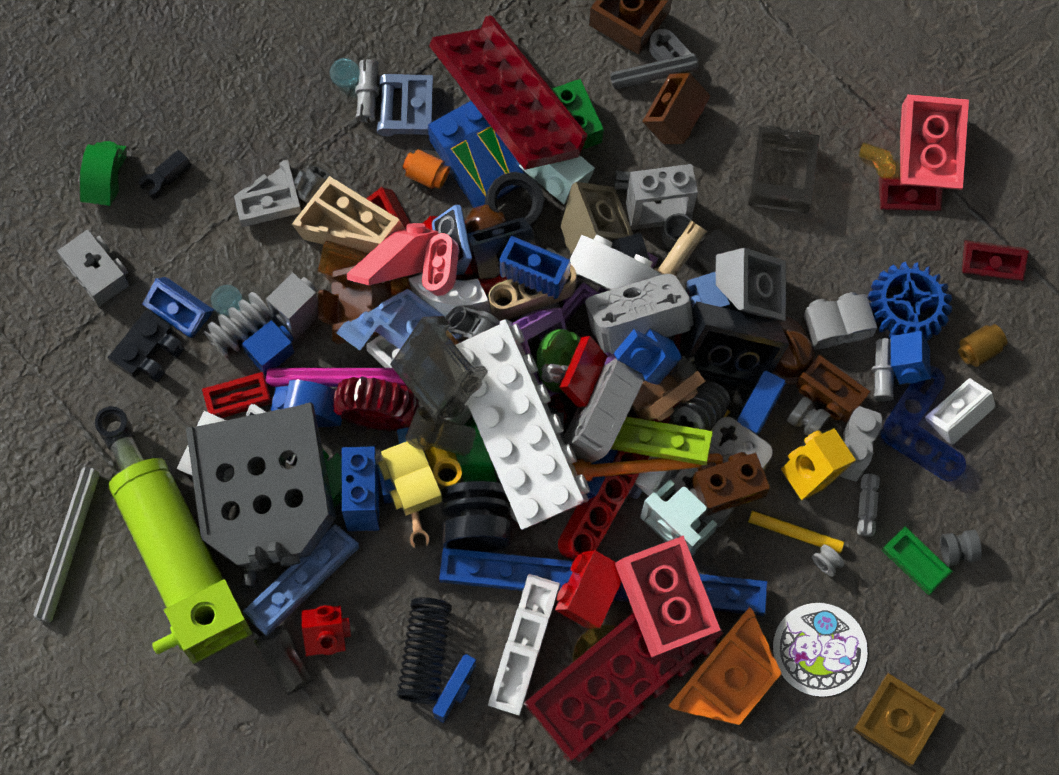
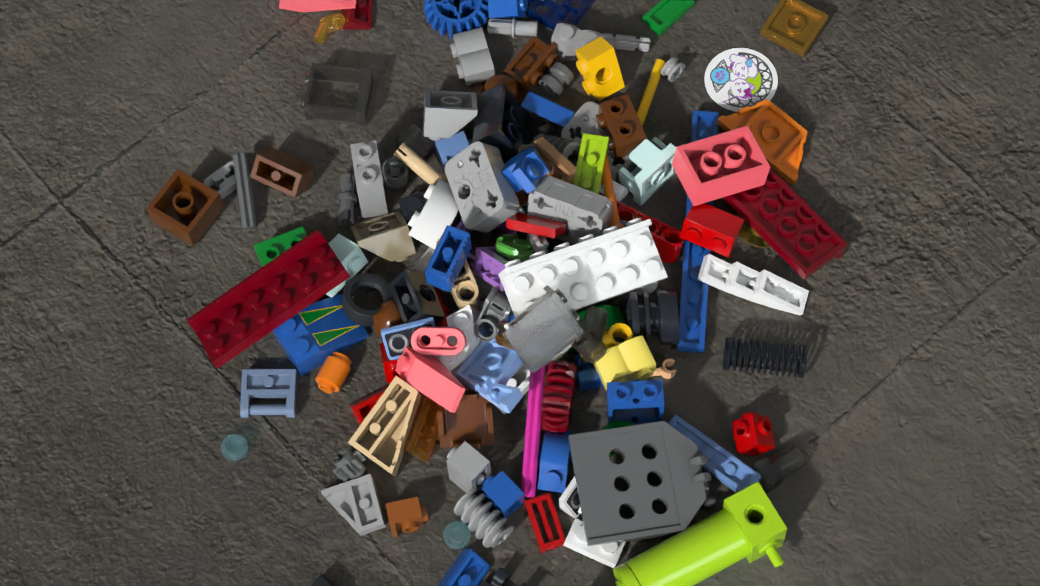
camera: 85 degrees left, 5 degrees down
(249, 244) = (406, 515): none -> dark orange brick
(367, 90) = (253, 426): light grey pin -> none
(455, 689) = (793, 334): blue plate -> none

